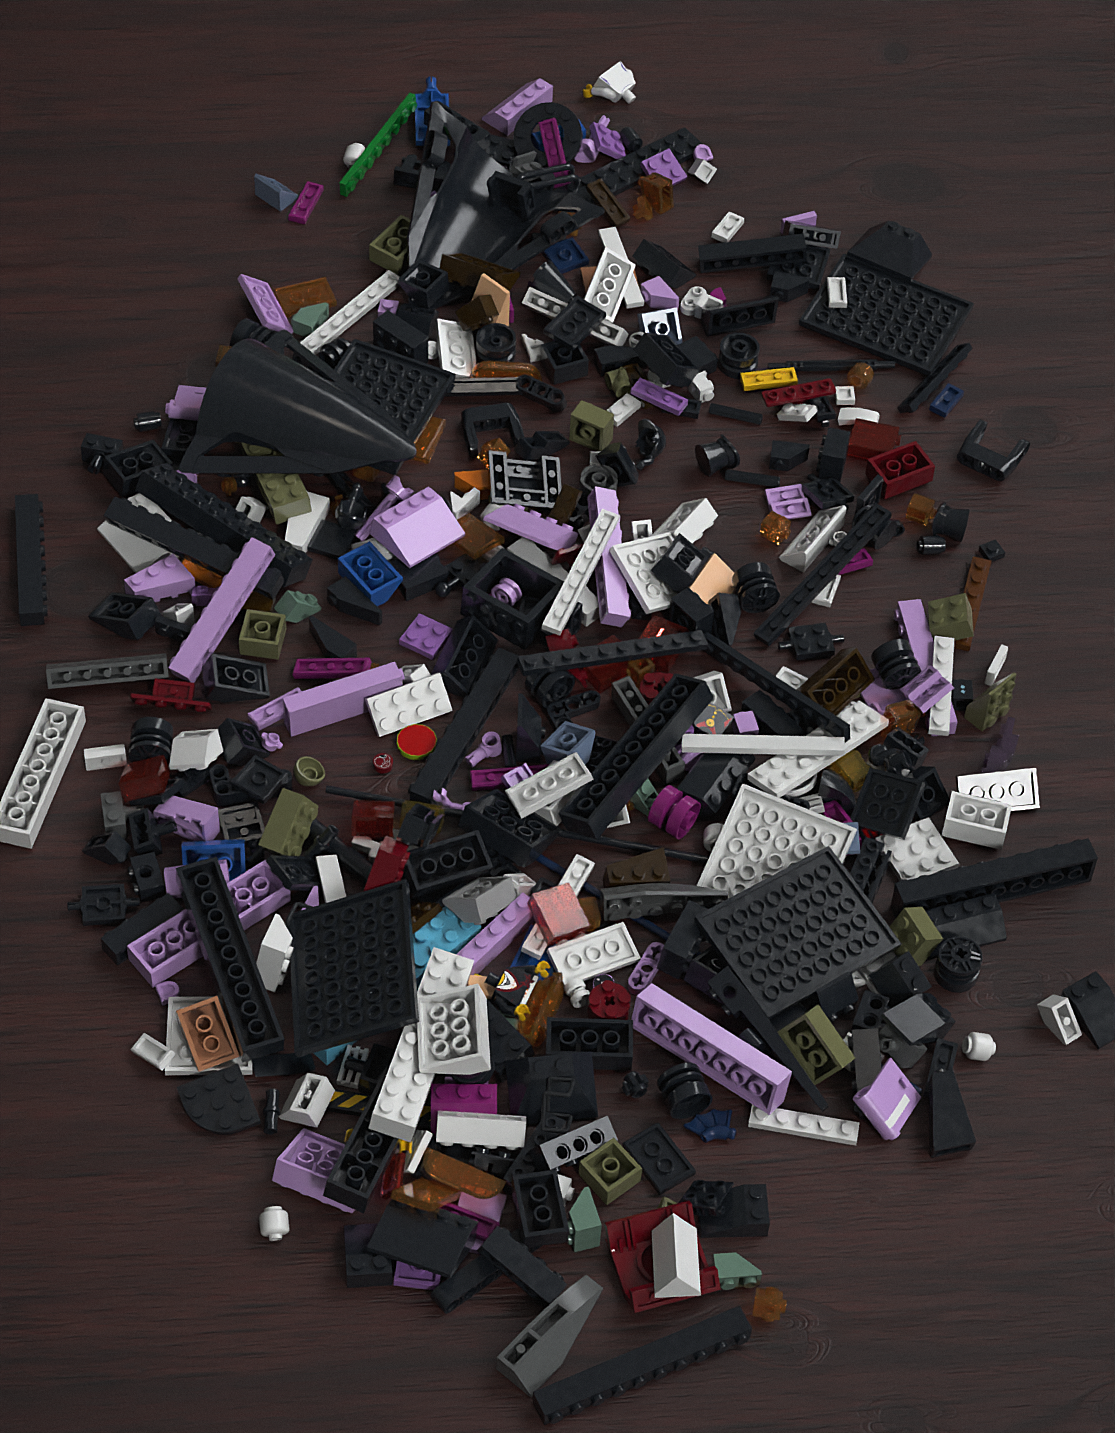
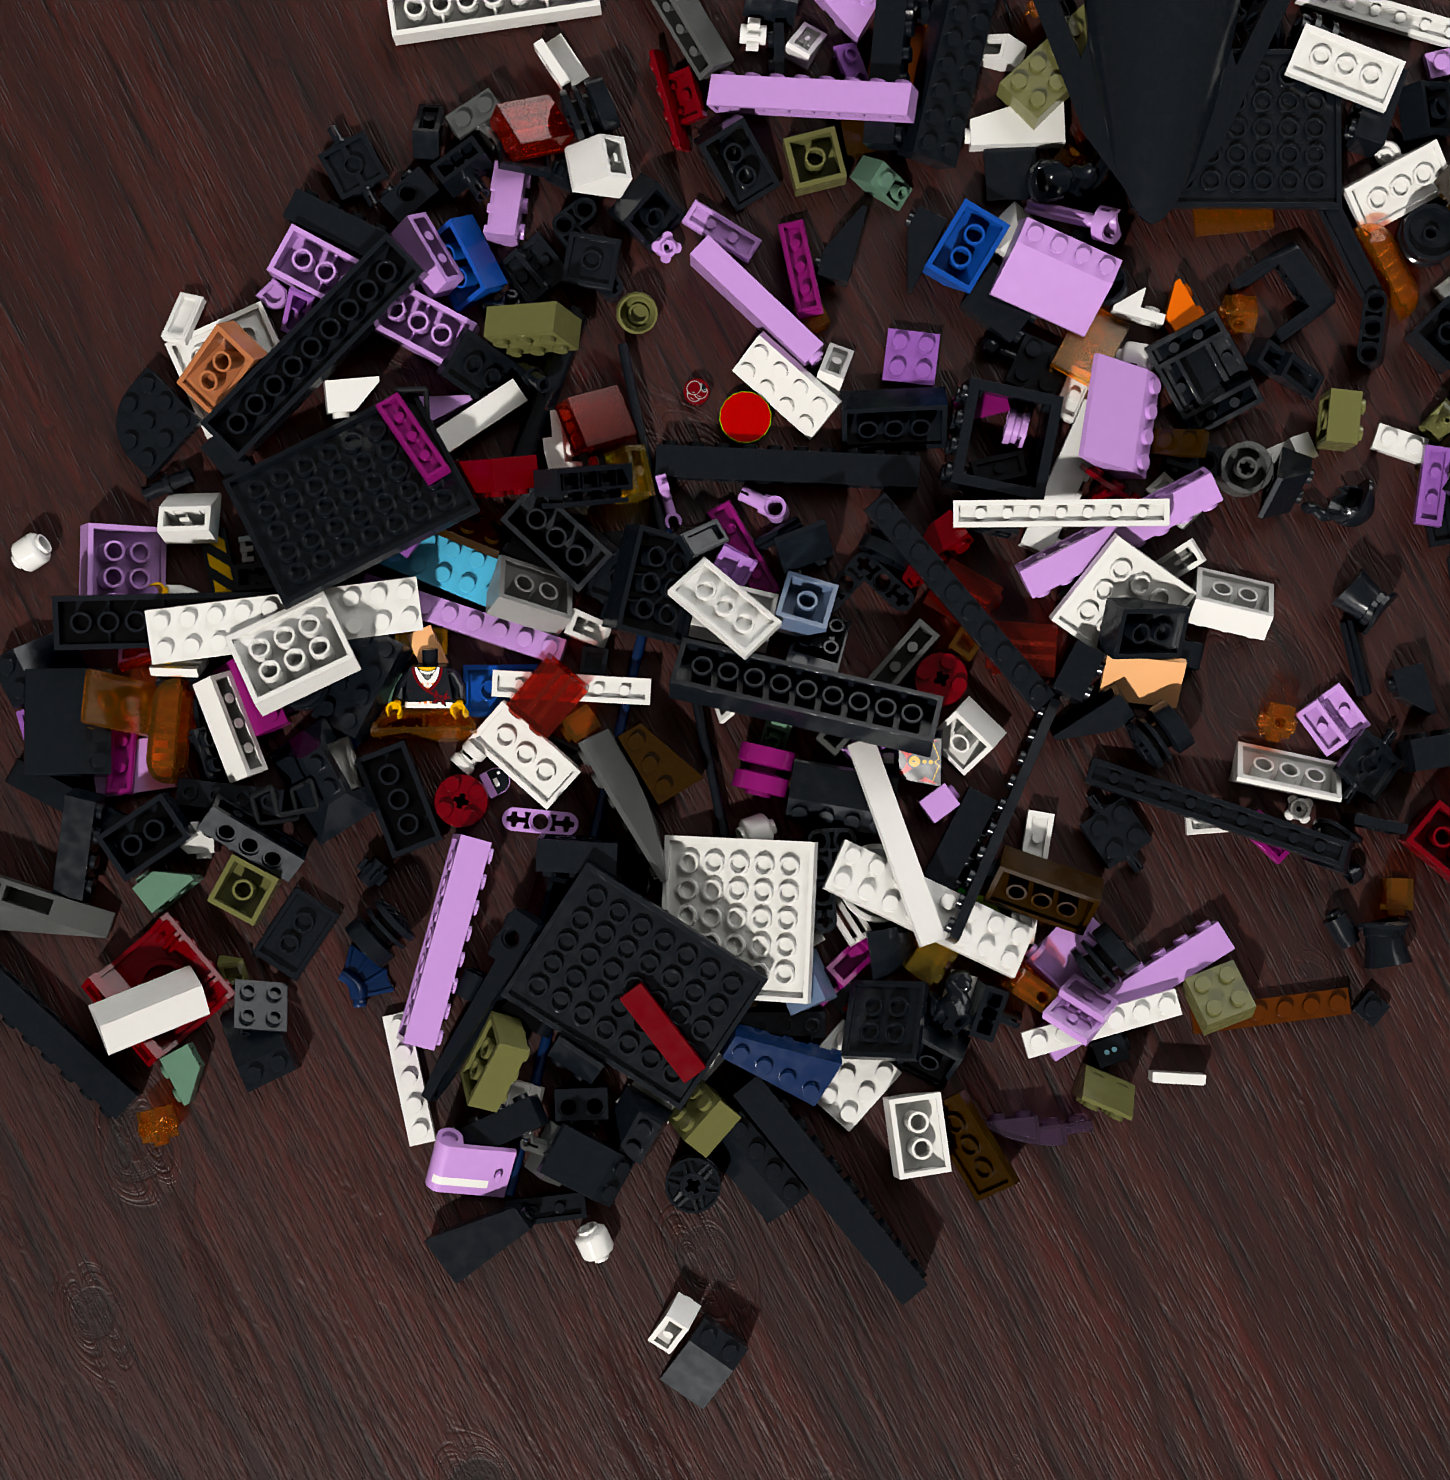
camera: 70 degrees right, 35 degrees up
(154, 638) = (753, 34): none -> white gear
(190, 975) = (296, 307): none -> medium lavender slope
(331, 915) = (413, 438): none -> magenta tile
(369, 335) = (1345, 68): none -> white plate
(492, 786) = (702, 539): none -> black tile
(839, 924) = (662, 1032): none -> dark red tile
(898, 862) = (786, 1063): none -> dark blue wedge

